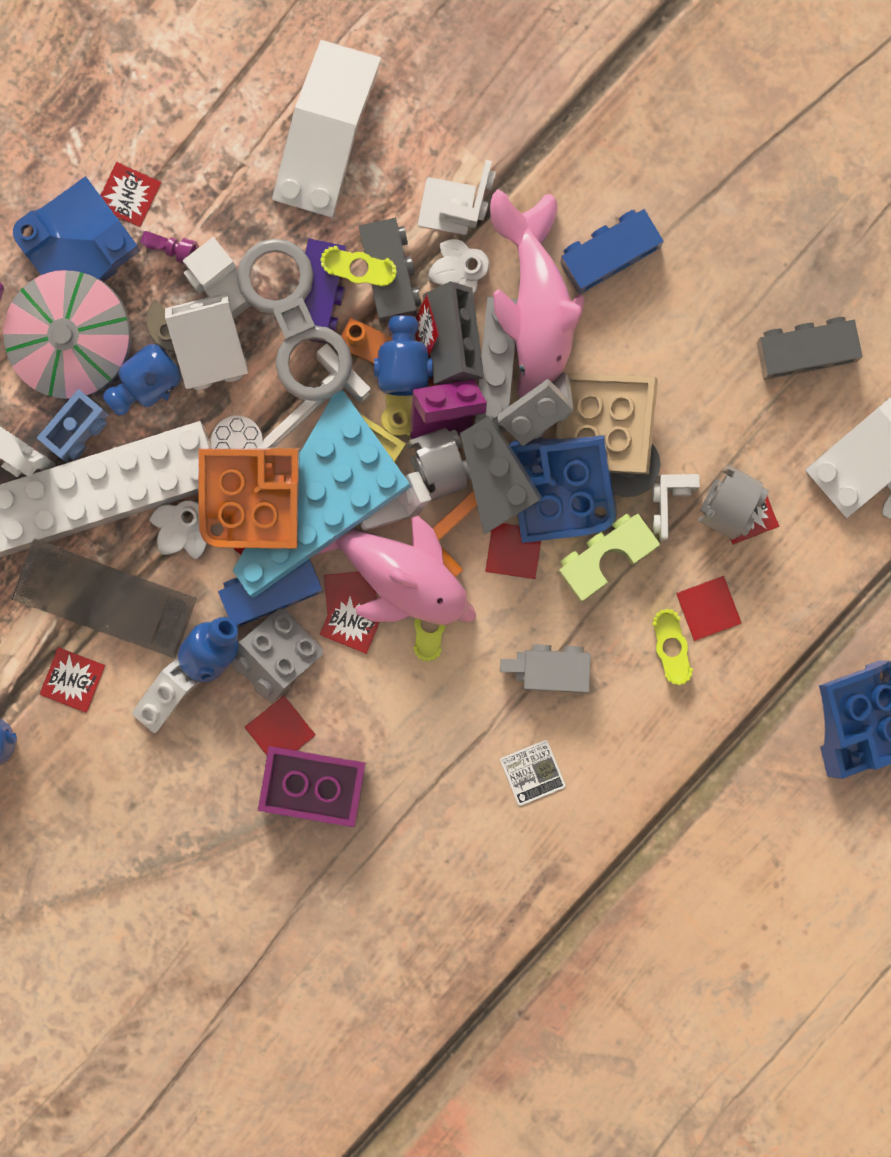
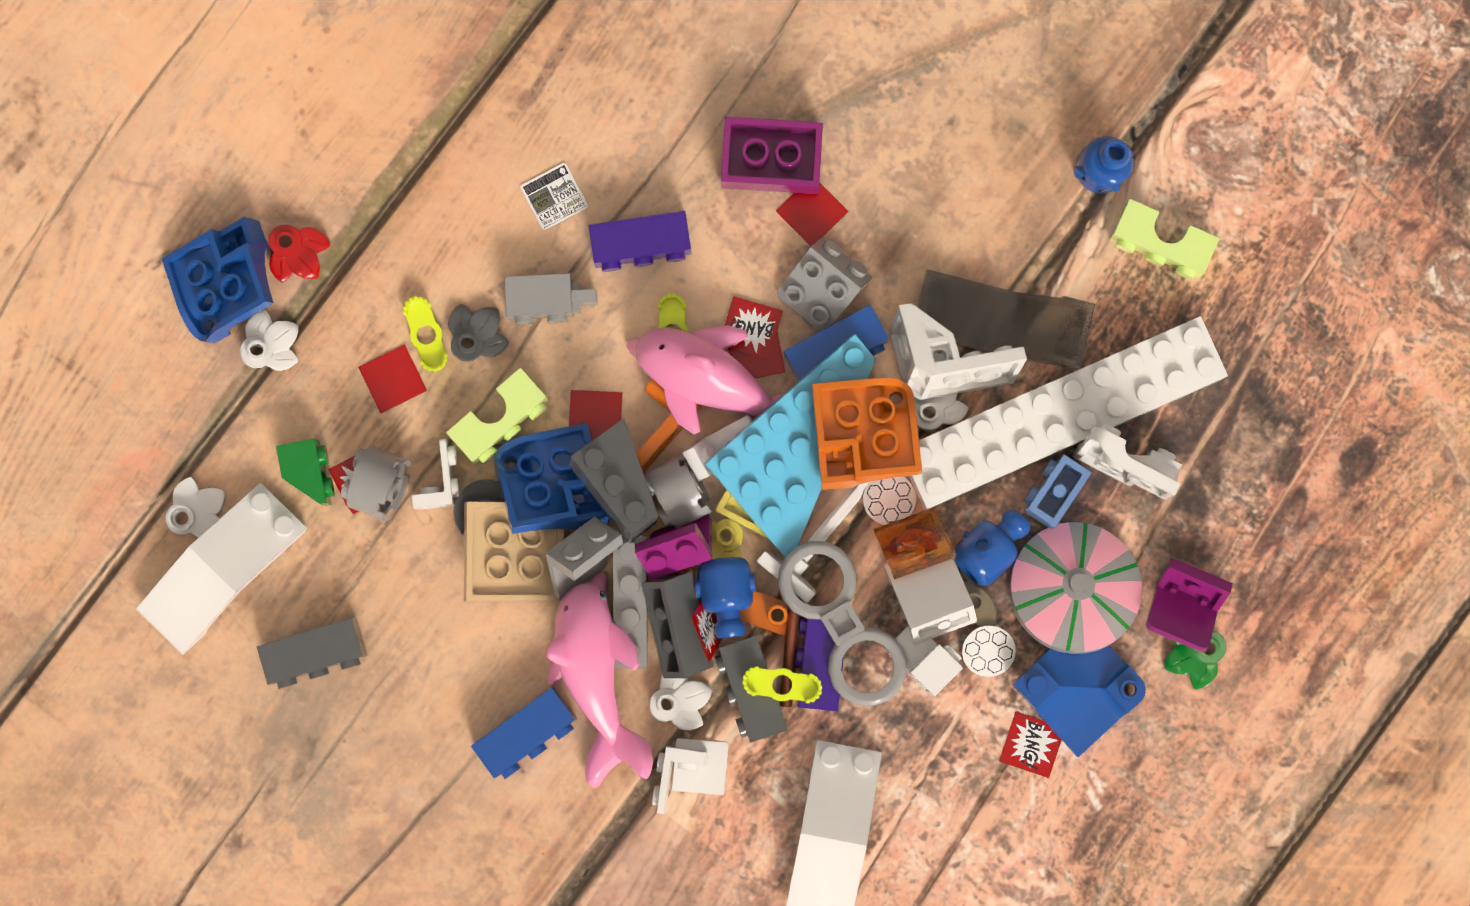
camera: 170 degrees right, 0 degrees up
(72, 679) = (1027, 240): sticker -> none
(158, 284) = (988, 651): none -> white sticker
(163, 696) = (928, 233): white bracket -> none
(170, 246) = (965, 688): magenta piece -> none
(178, 565) = (932, 375): none -> white bracket
(209, 649) = (891, 278): blue piece -> none
(216, 391) = (914, 543): none -> clear orange tile
(349, 299) = (790, 653): none -> copper bar
(451, 715) = (640, 241): none -> dark purple brick
(619, 647) = (478, 328): none -> dark grey plate
(789, 739) = (299, 256): none -> red plate
(802, 524) = (304, 468): none -> green slope
(822, 656) = (274, 341): none -> white plate

